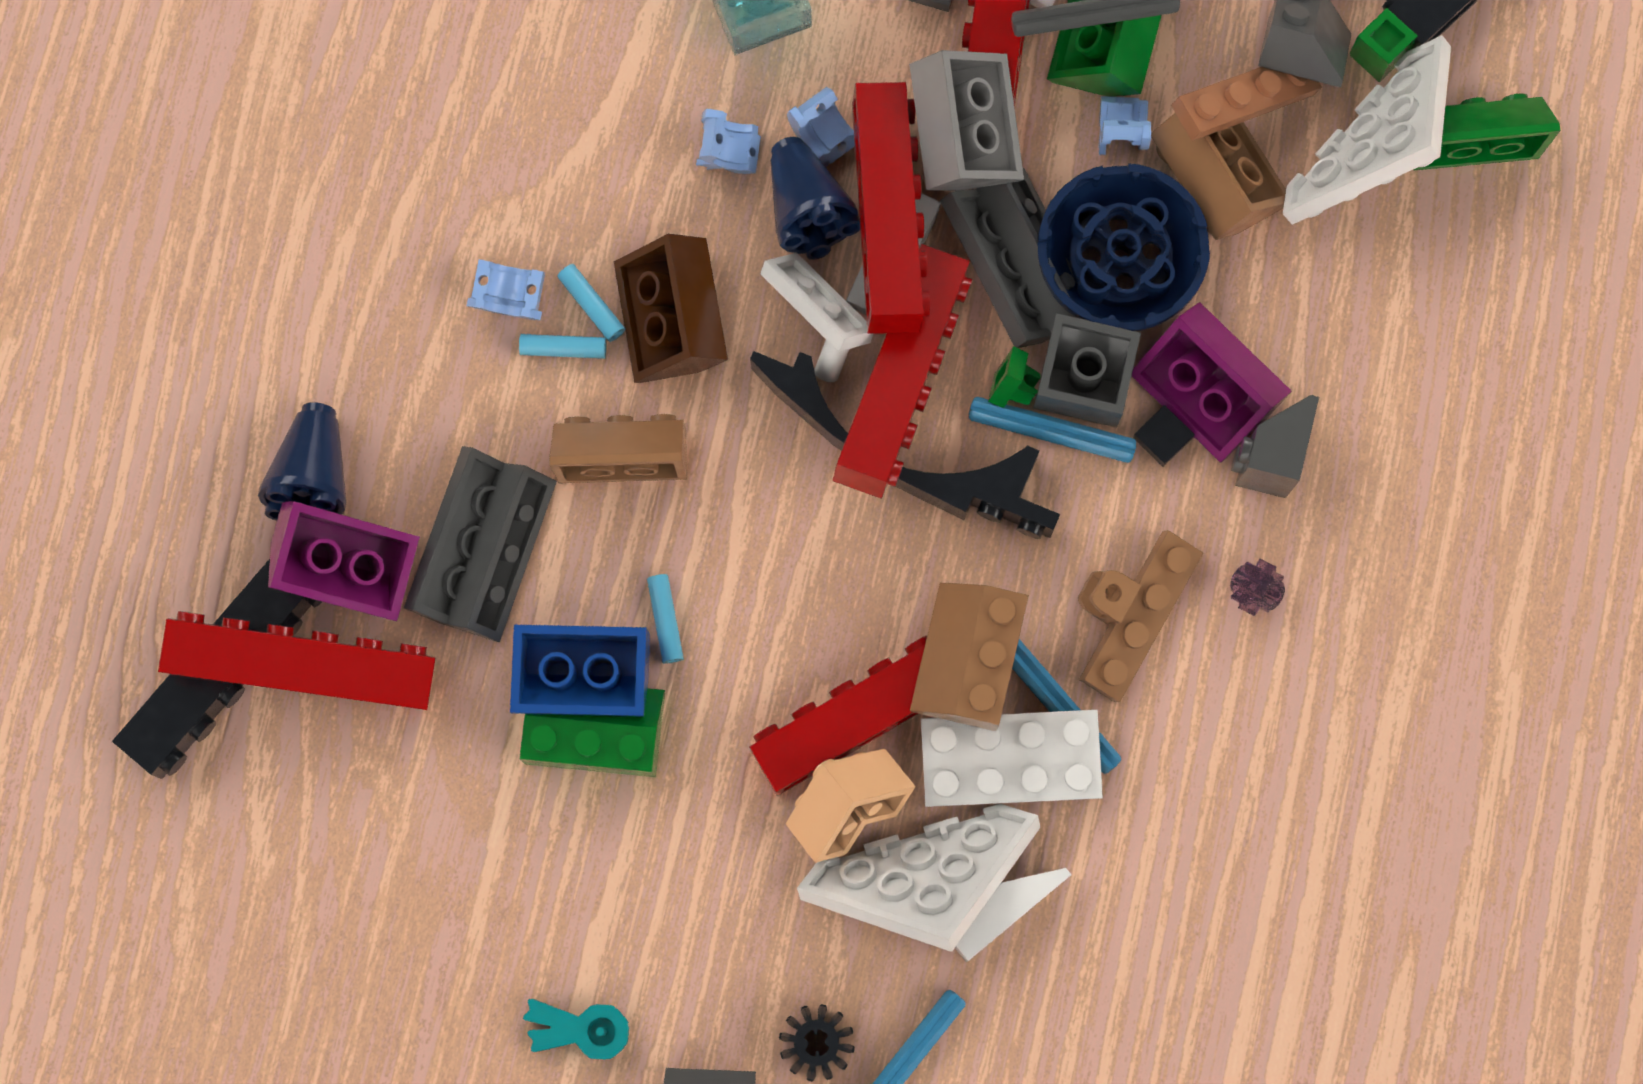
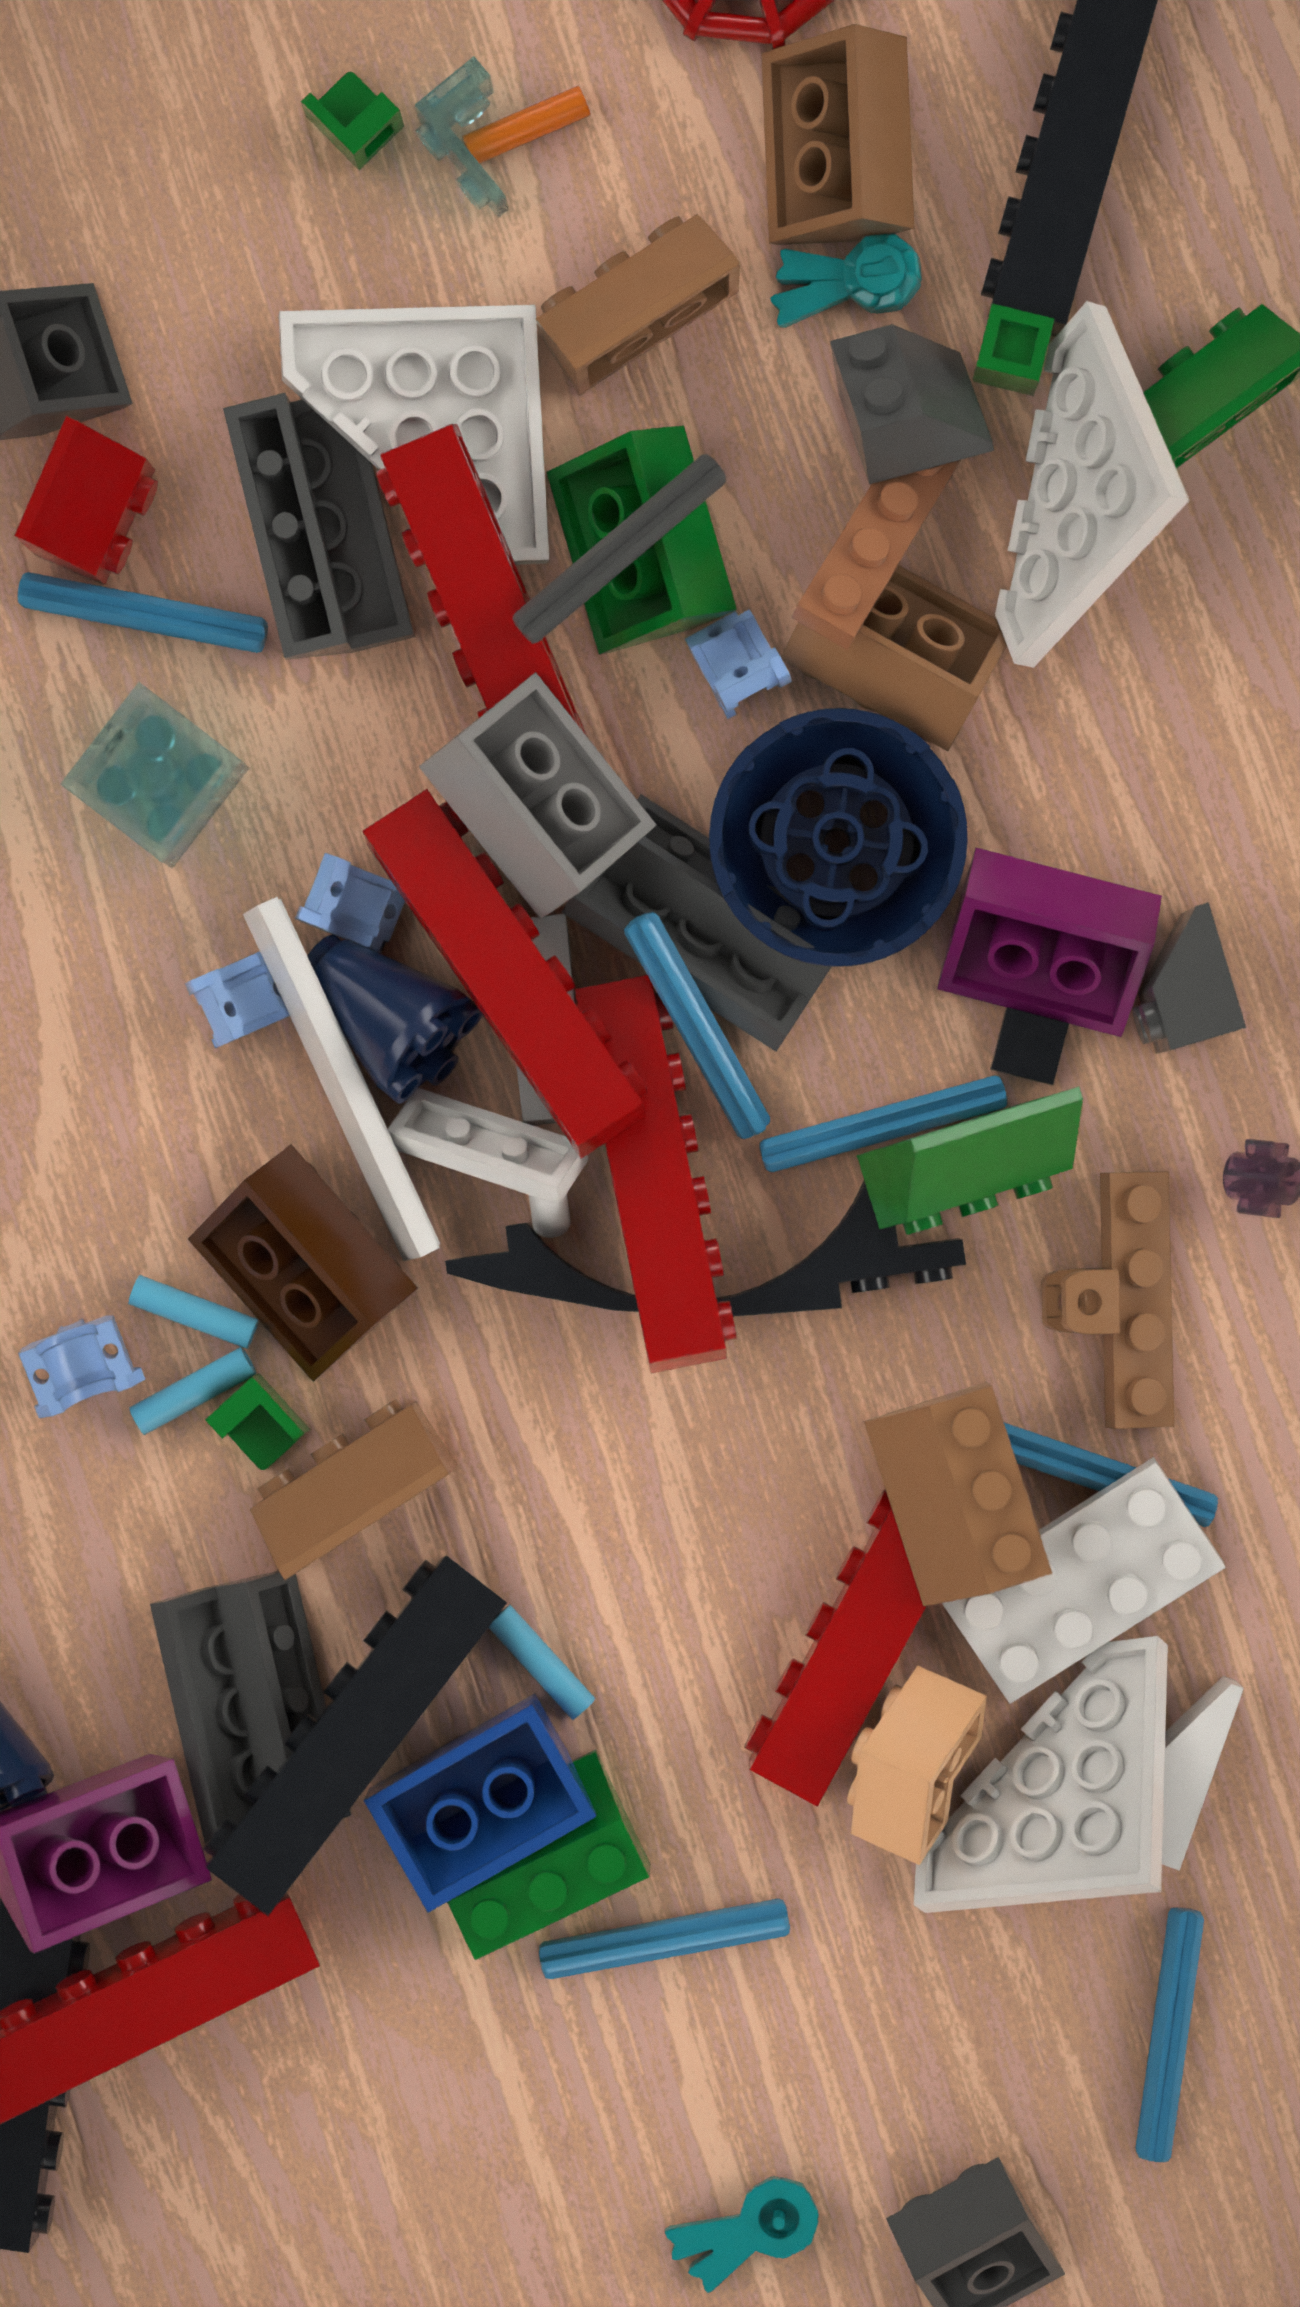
camera: 30 degrees left, 10 degrees up
(531, 586) = (354, 1735): none -> black brick
(588, 383) = (258, 1422): none -> green panel
(637, 823) = (664, 1938): none -> dark azure axle
(757, 219) = (341, 1079): none -> white tile
(831, 1041) = (1073, 2062): black gear -> none
(979, 306) = (697, 1025): none -> dark azure axle
(1014, 380) = (792, 1094): green tile -> none
(1087, 370) = (885, 1026): dark grey slope -> none
(1095, 468) = (973, 1162): none -> green slope

